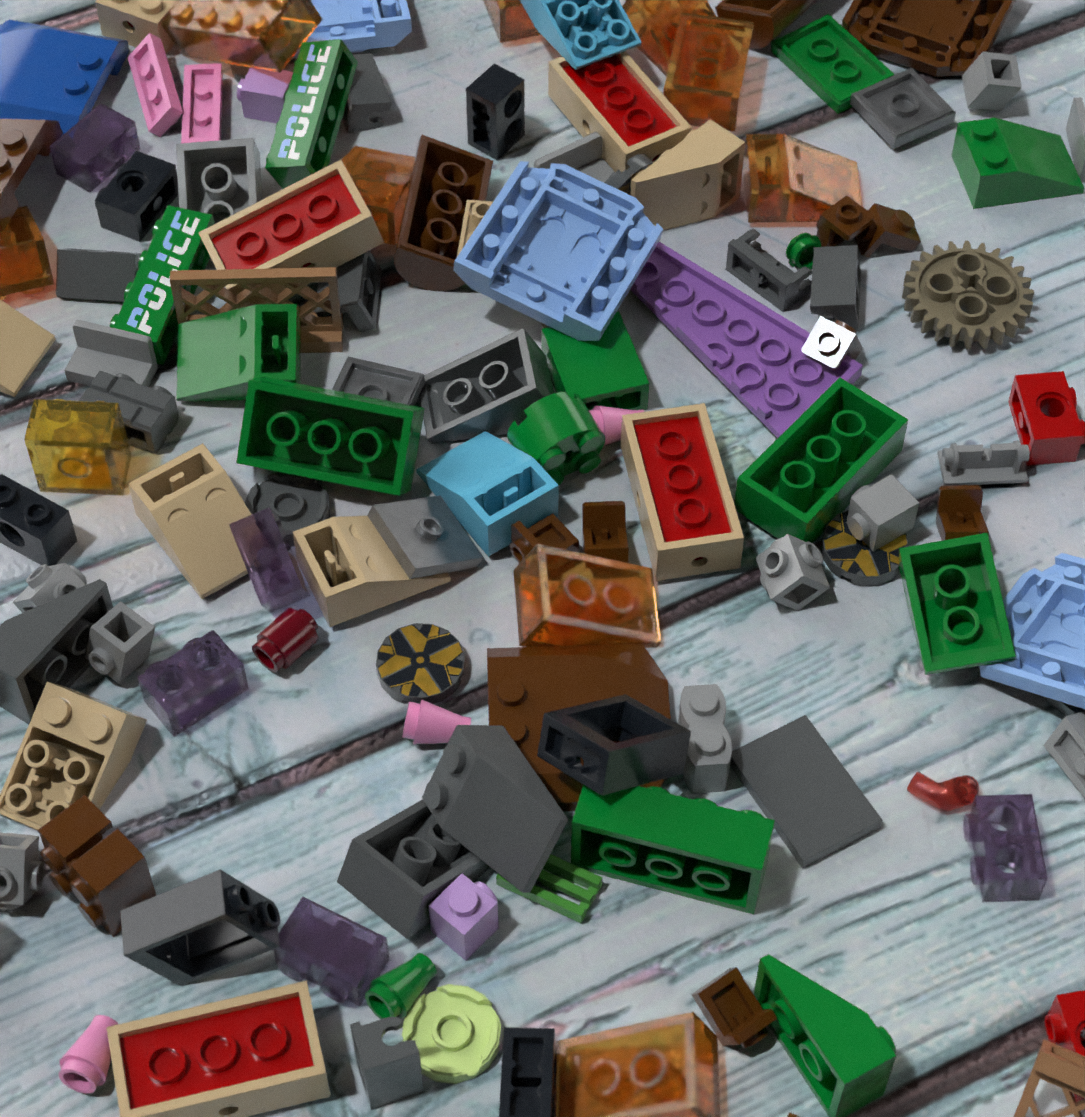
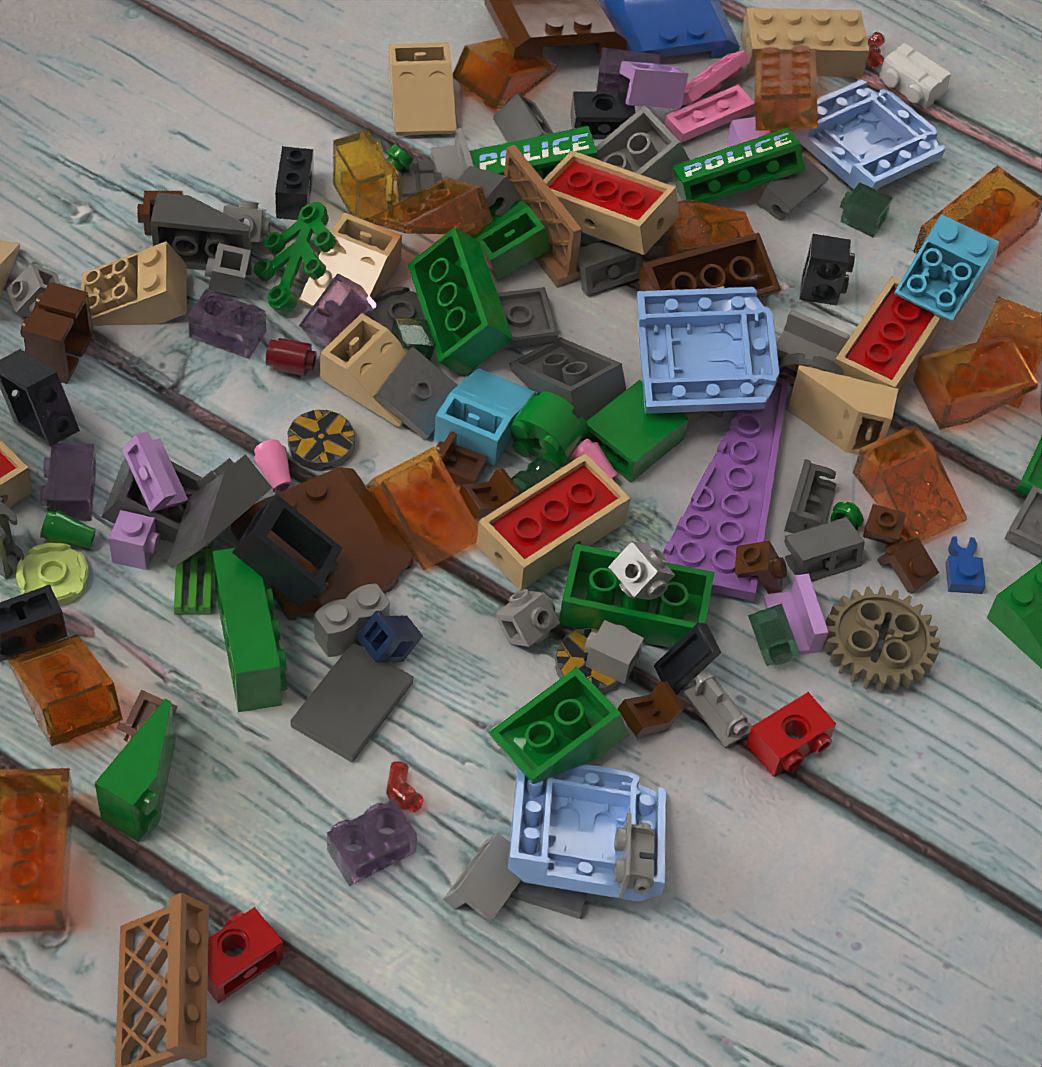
camera: 55 degrees right, 0 degrees up
(84, 391) = (399, 158): none -> green plate
(141, 556) = (311, 220): none -> green plant
(149, 119) = (654, 84): none -> lavender panel
(193, 336) = (494, 187): none -> dark grey hinge
(199, 390) = (439, 210): none -> clear orange slope
(347, 499) = (414, 333): none -> clear green panel
(406, 841) = (154, 472): none -> lavender panel
(427, 48) = (865, 209): none -> clear green brick
(606, 481) = (535, 473): none -> clear green wheel
(752, 710) = (389, 637): none -> dark blue brick
(812, 424) = (642, 571): none -> light grey brick
(905, 347) = (802, 614): none -> lavender panel
(914, 195) = (963, 570): none -> blue plate
(924, 453) = (688, 657): none -> black tile
(925, 374) = (774, 635): none -> clear green brick

